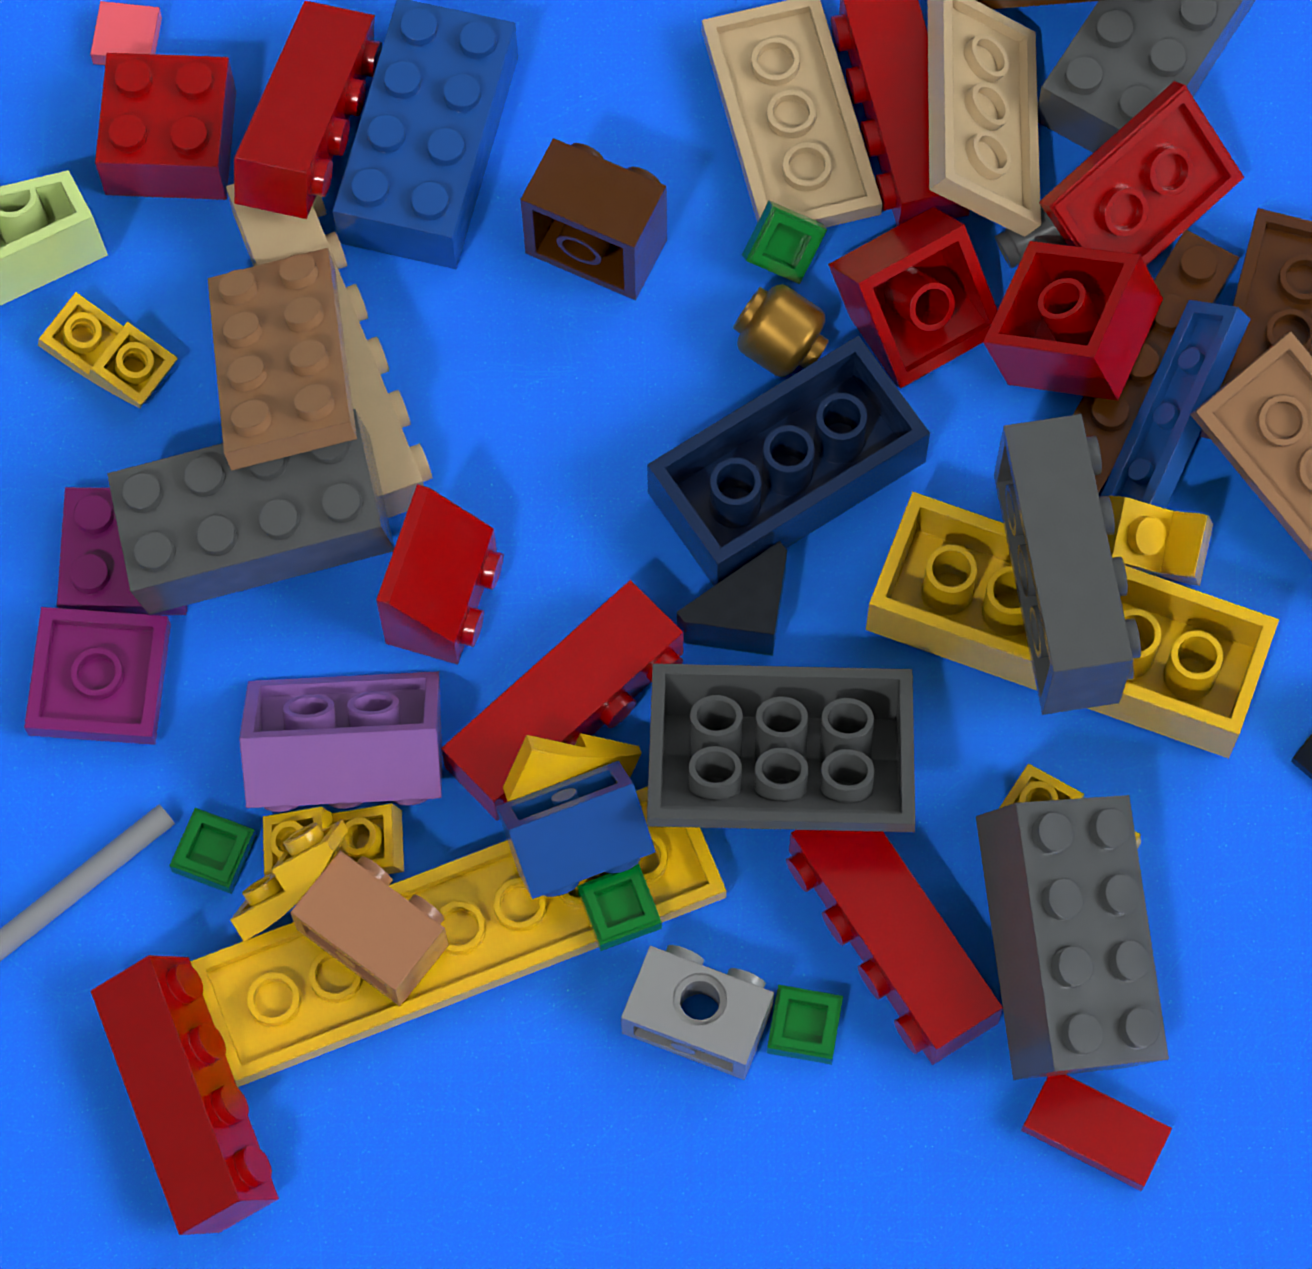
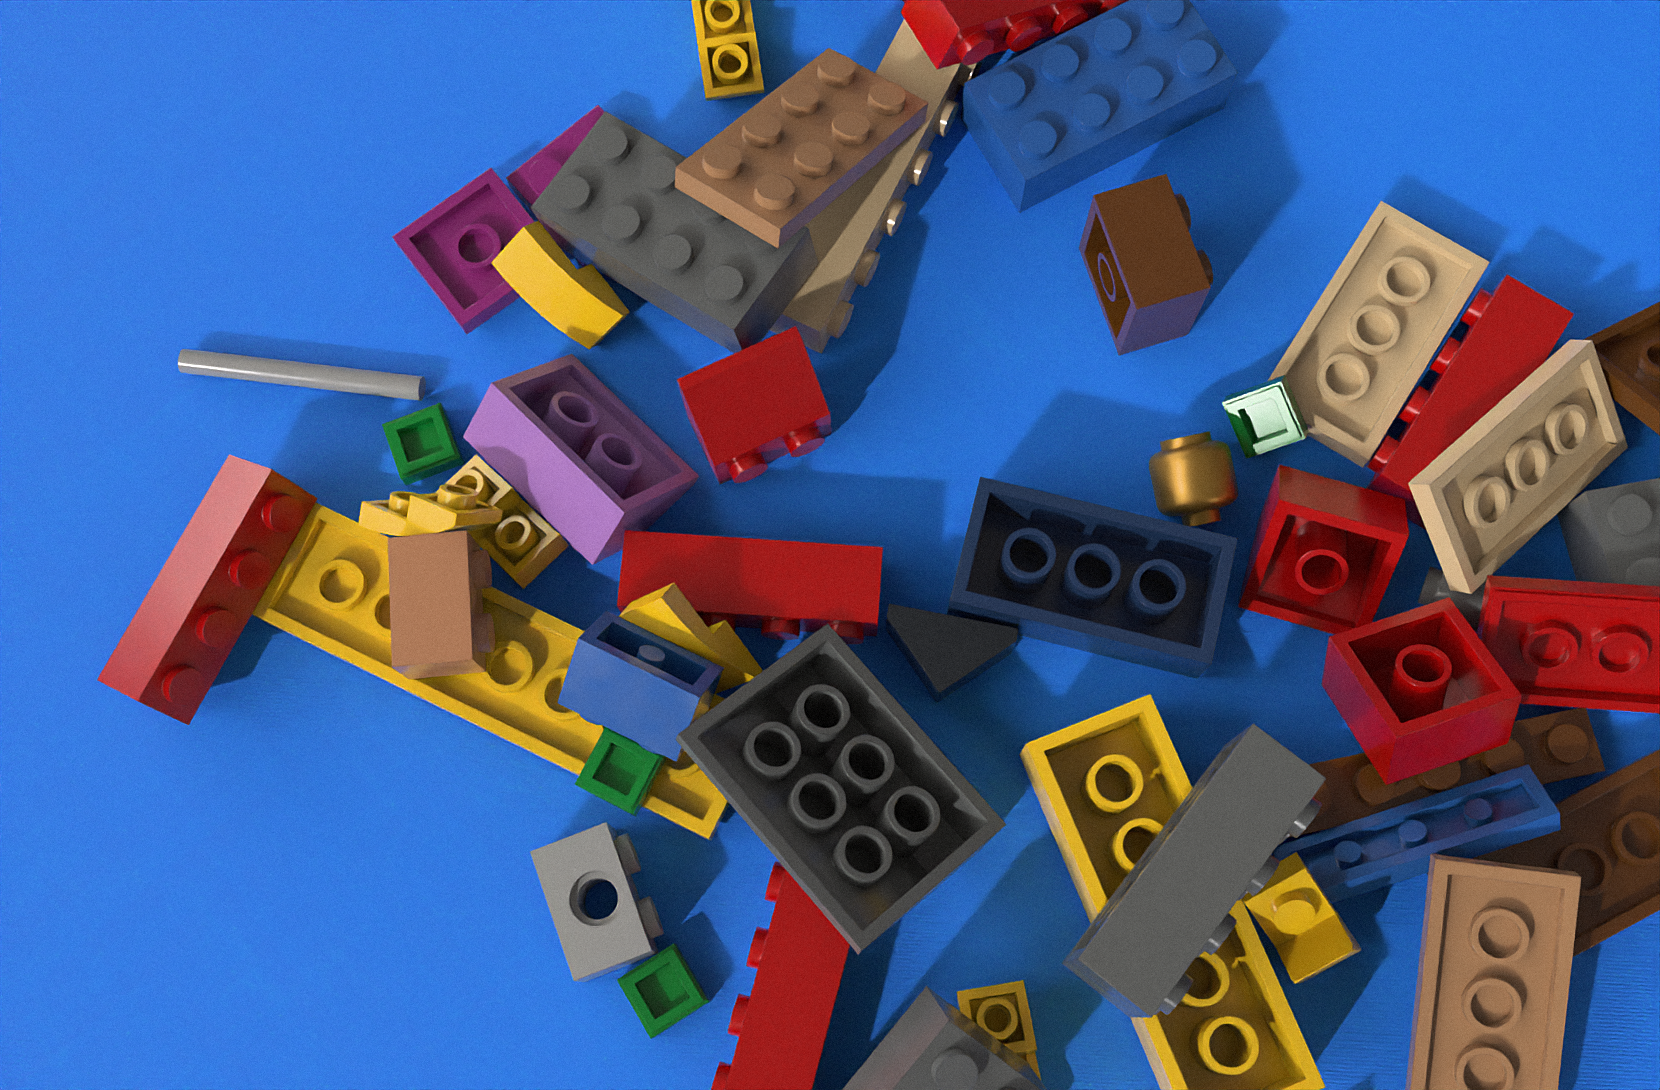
camera: 50 degrees right, 5 degrees up
(198, 639) = (569, 298): none -> yellow slope

